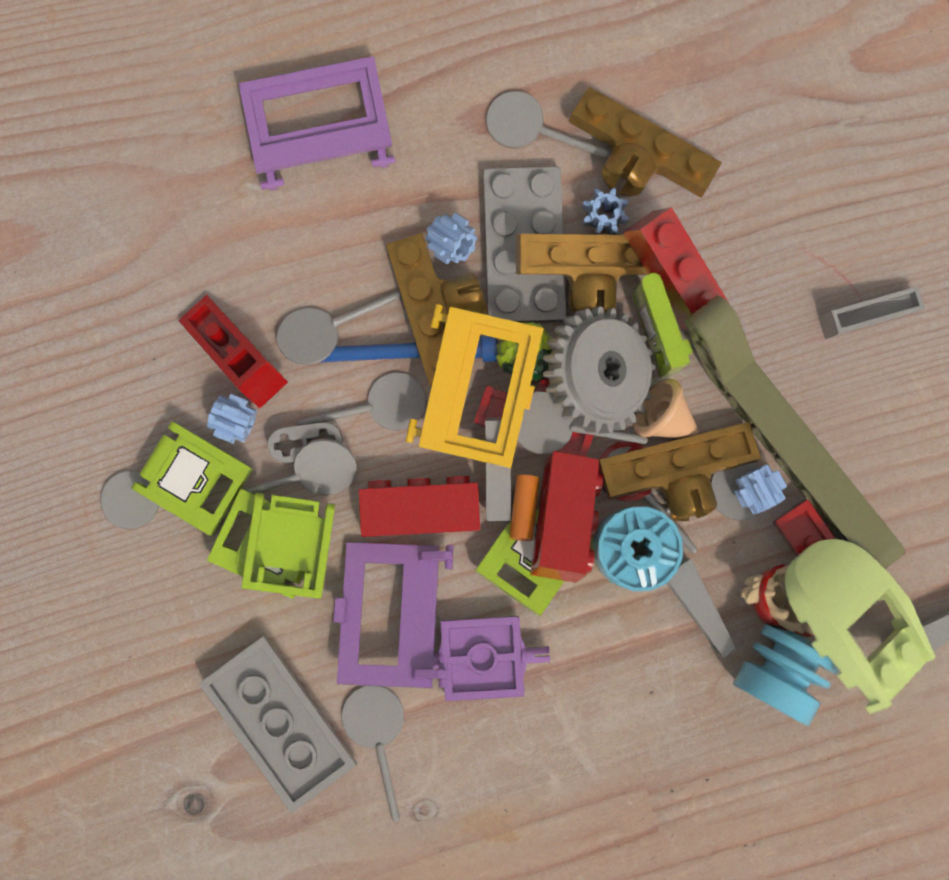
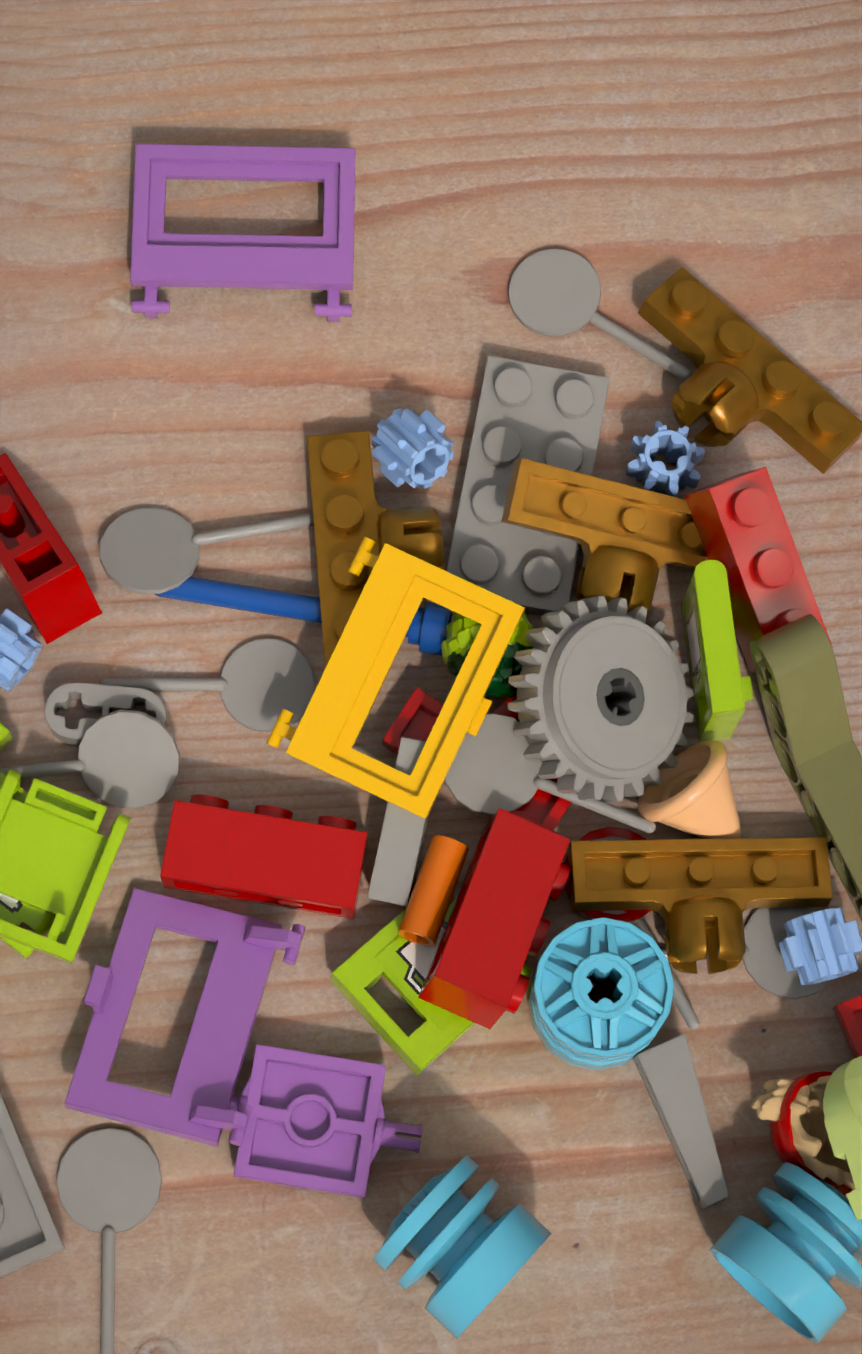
camera: 10 degrees right, 10 degrees down
(592, 718) = (460, 1245): none -> medium azure wheel

